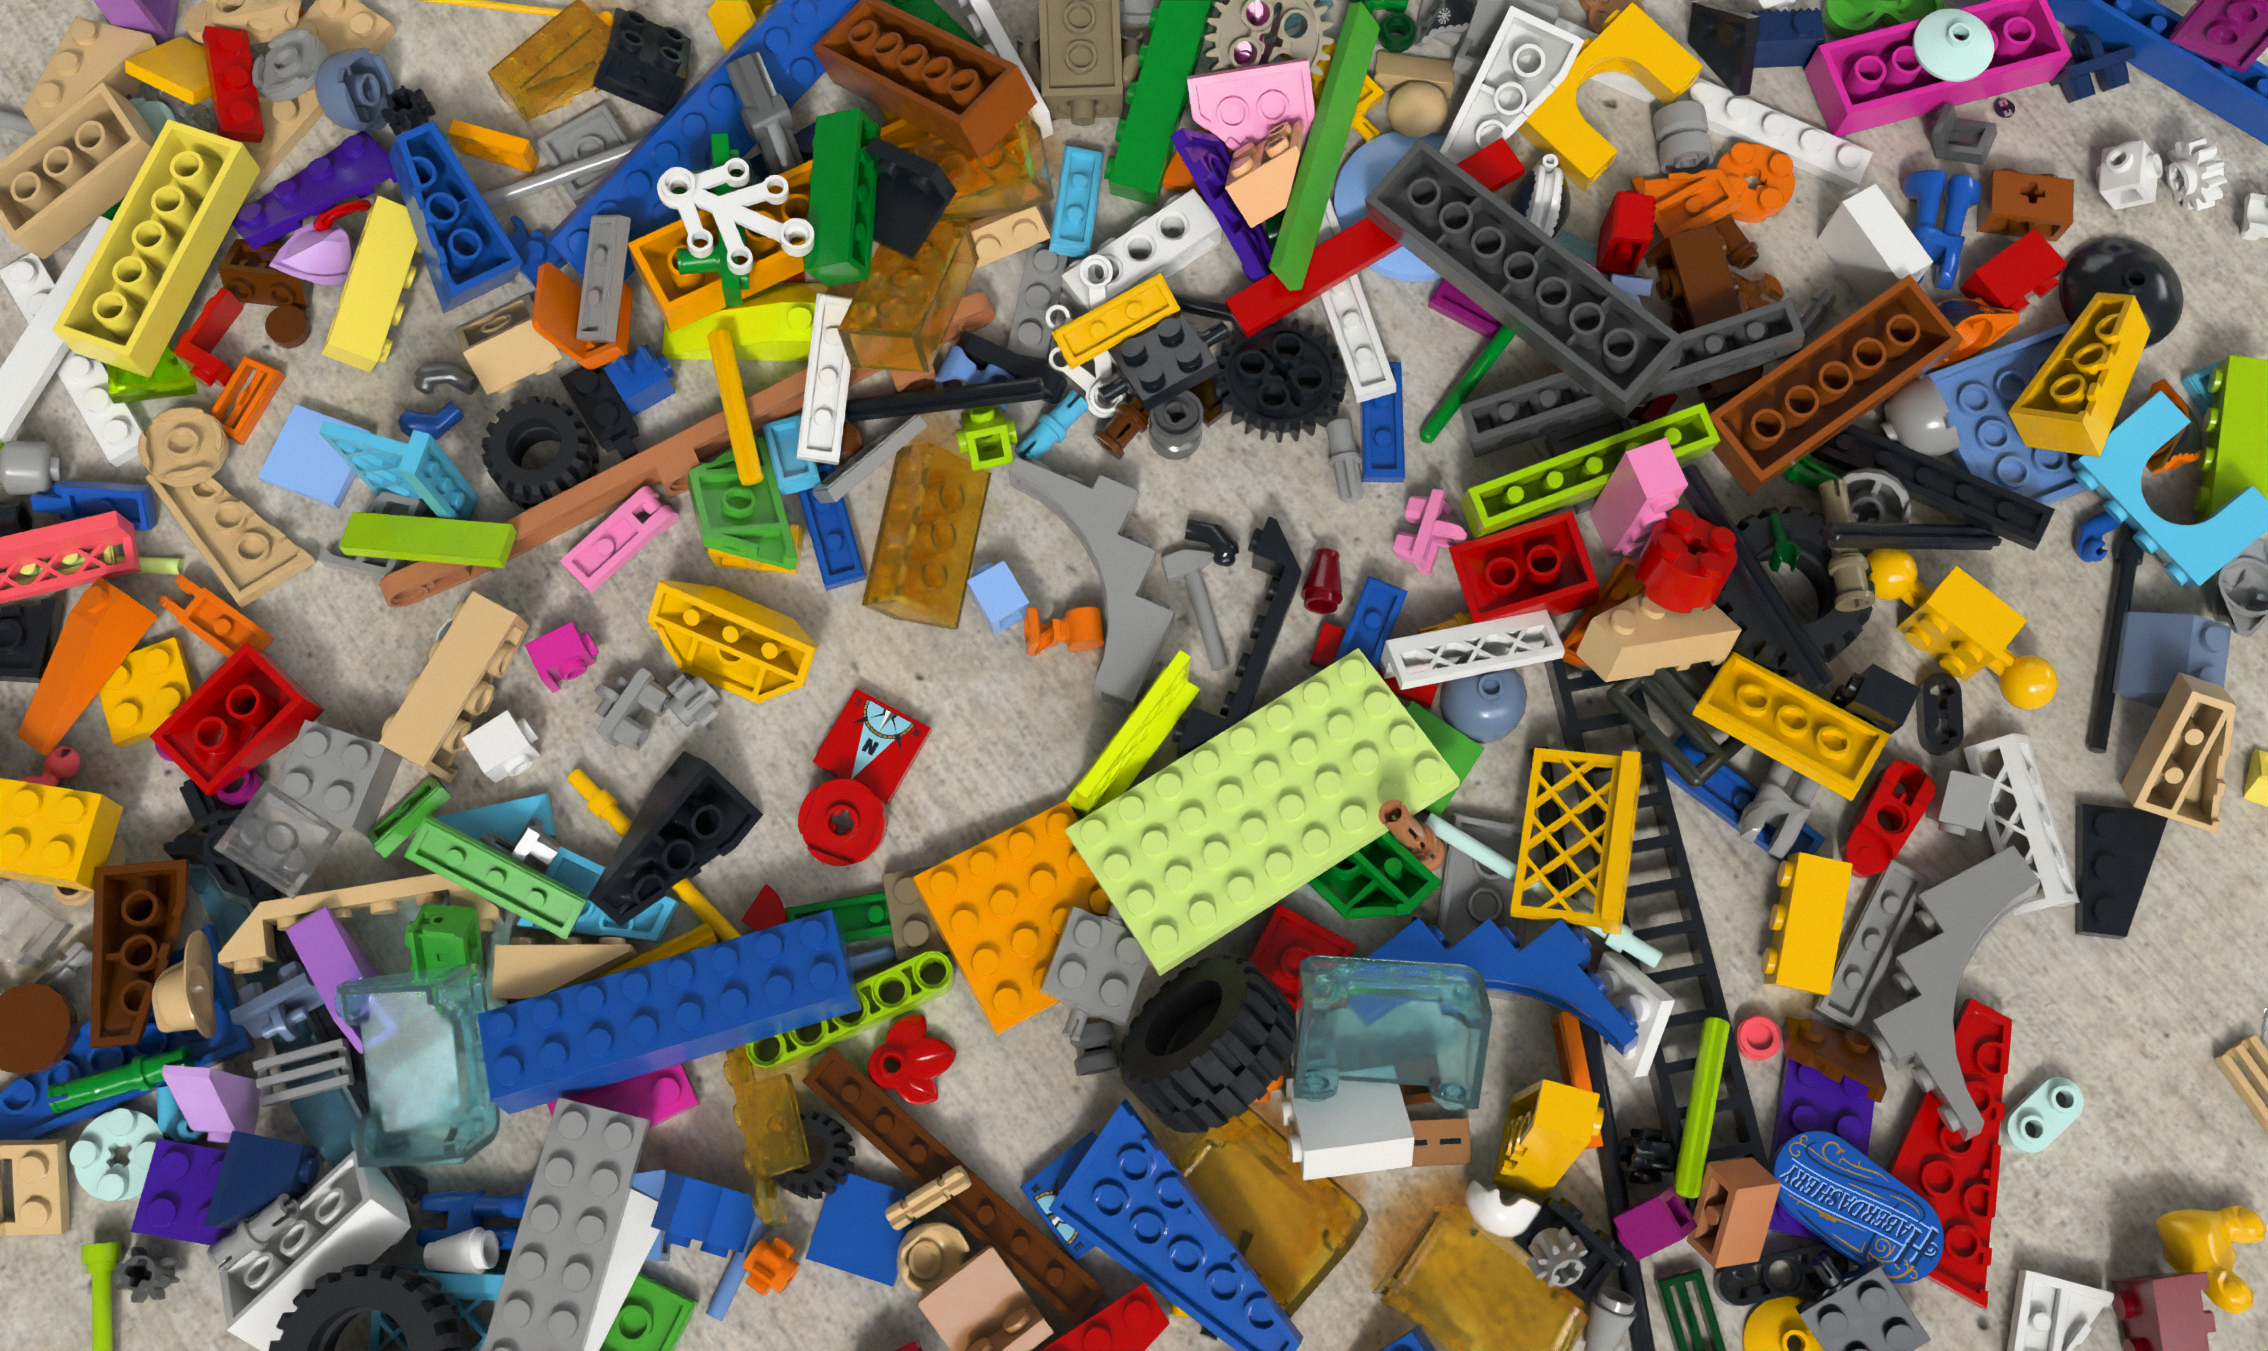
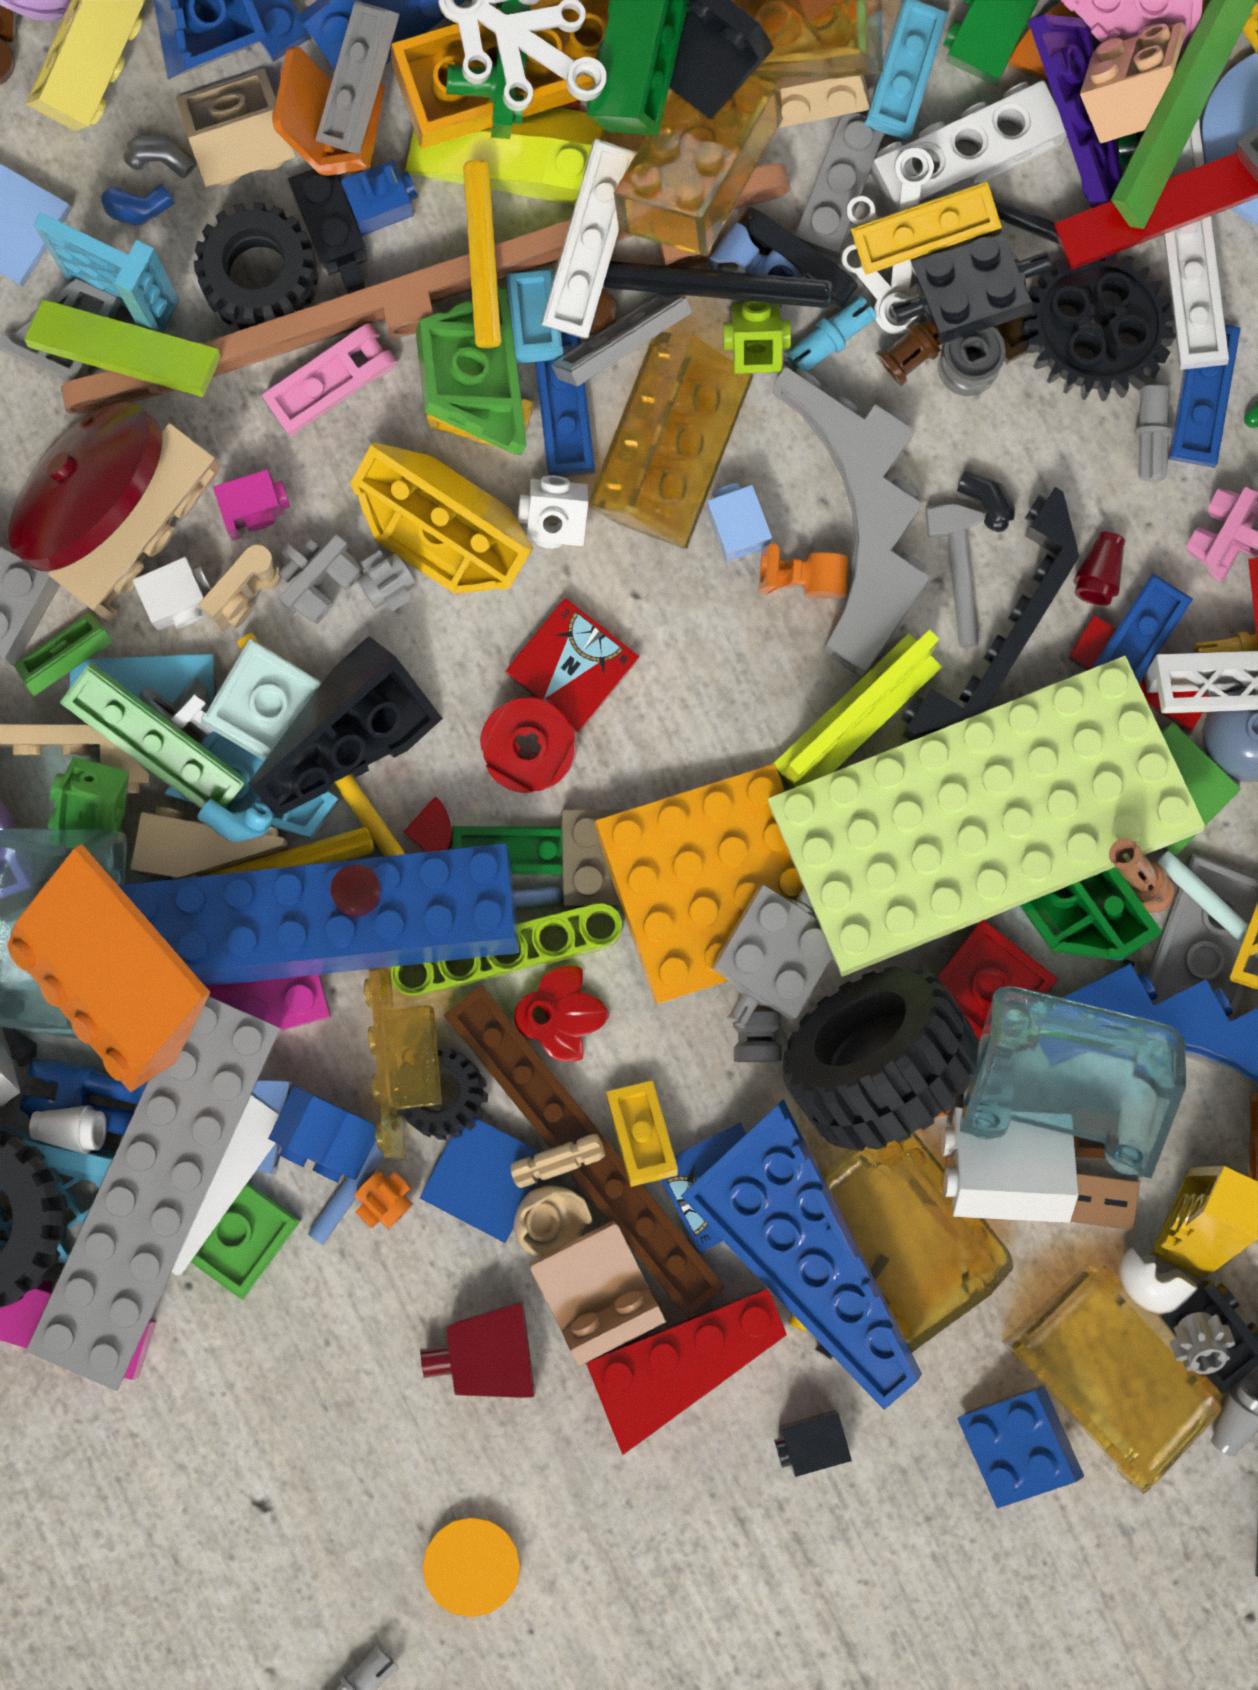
camera: 10 degrees right, 10 degrees up
(405, 661) = (85, 486): none -> dark red dish
(471, 1092) = (108, 971): none -> orange slope
(551, 739) = (231, 596): none -> tan plate
(583, 941) = (239, 825): none -> medium azure arm
(590, 824) = (259, 699): none -> light aqua tile
(697, 976) = (356, 890): none -> clear red tile
(836, 601) = (554, 512): none -> white brick
(1002, 1158) = (641, 1133): none -> yellow plate

